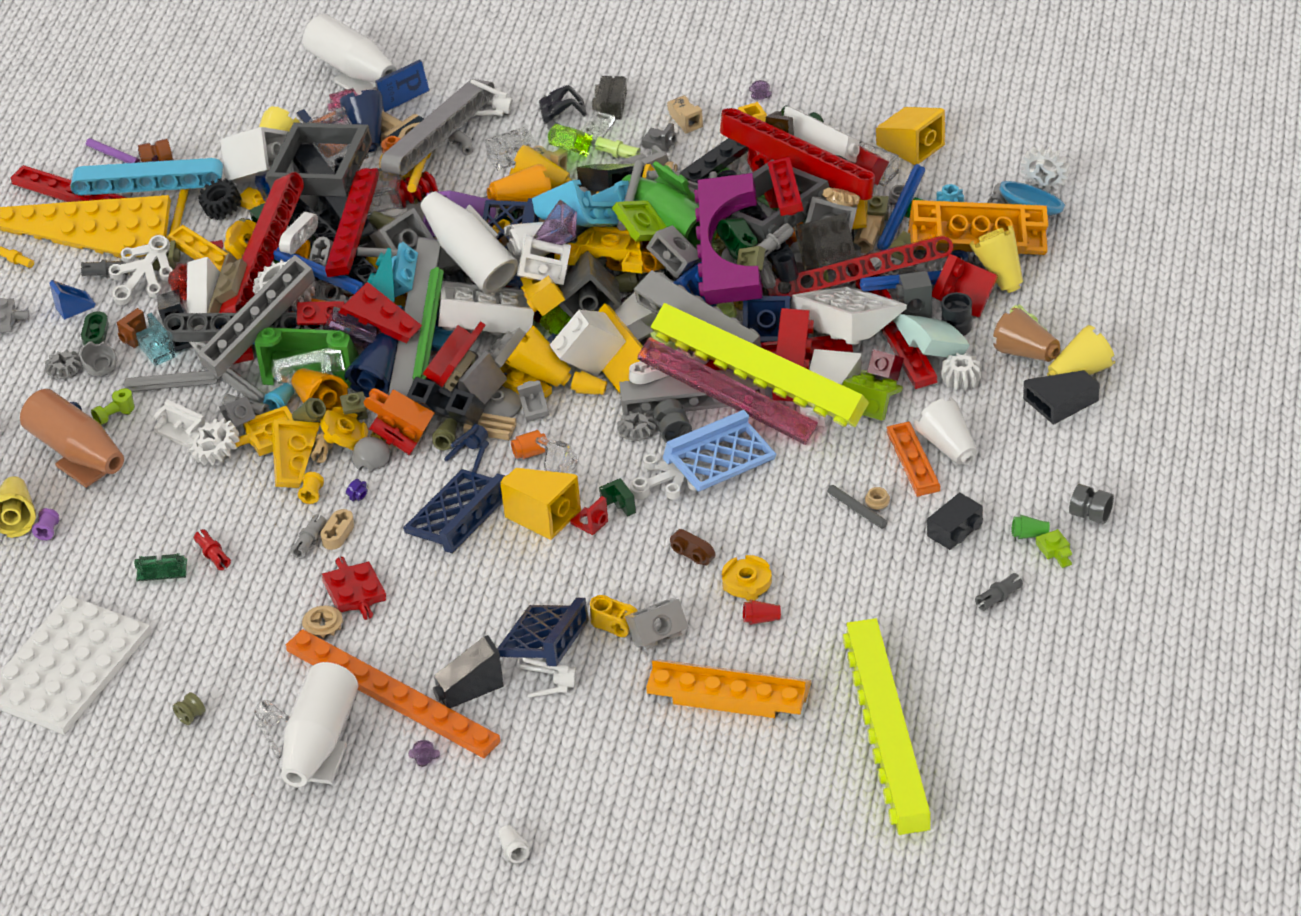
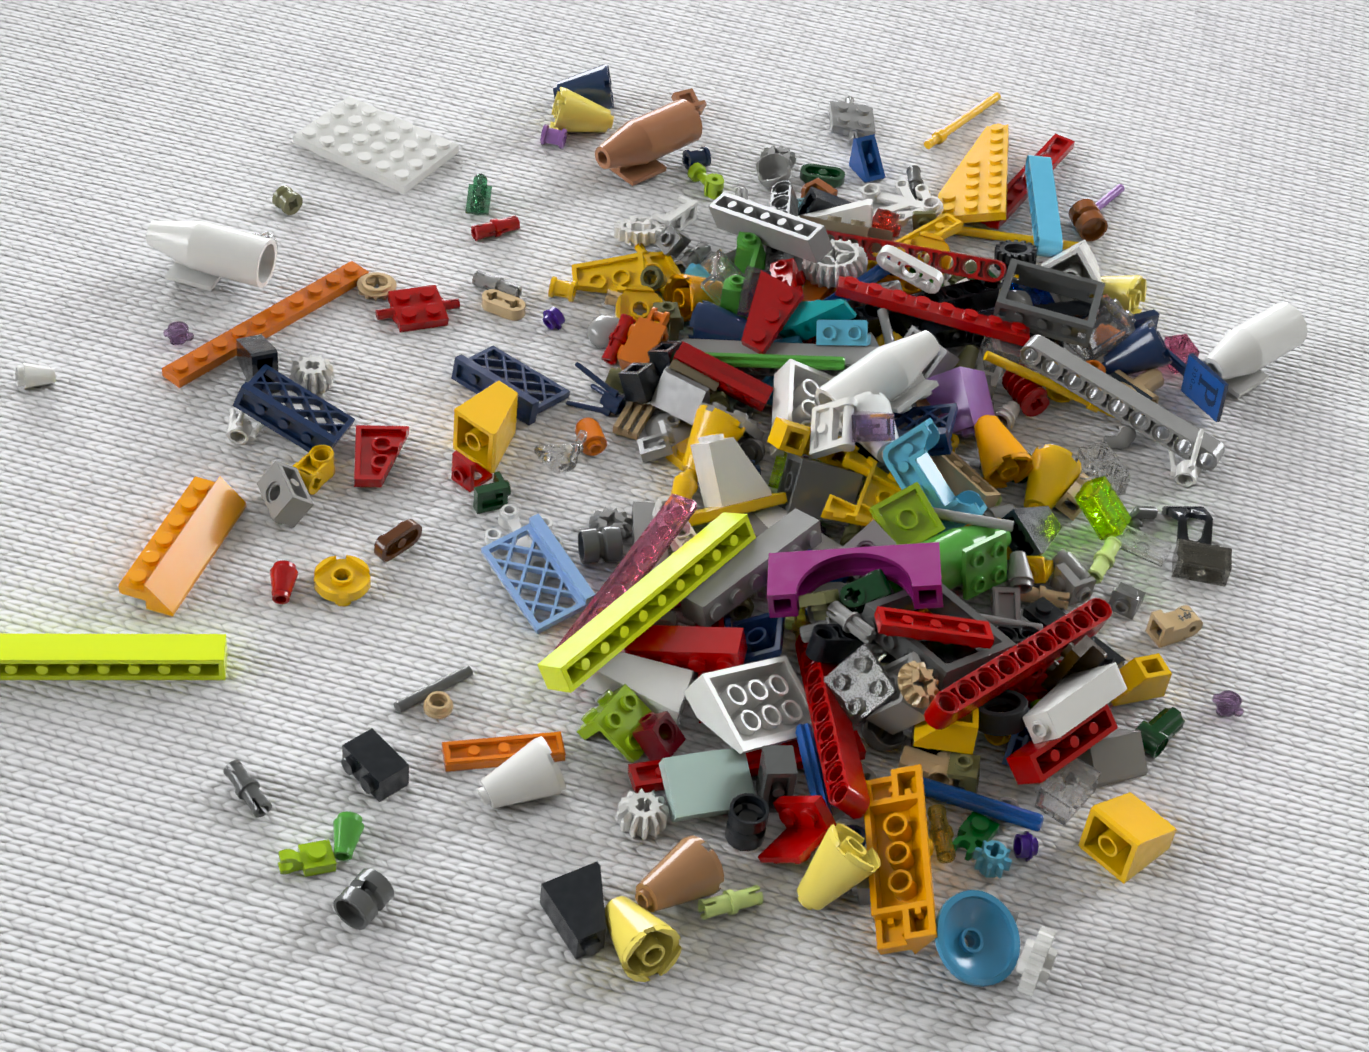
camera: 85 degrees right, 0 degrees up
(473, 632) = (313, 373): none -> white gear
(571, 582) = (376, 452): none -> red wing
(933, 188) = (1025, 846): none -> dark purple plate

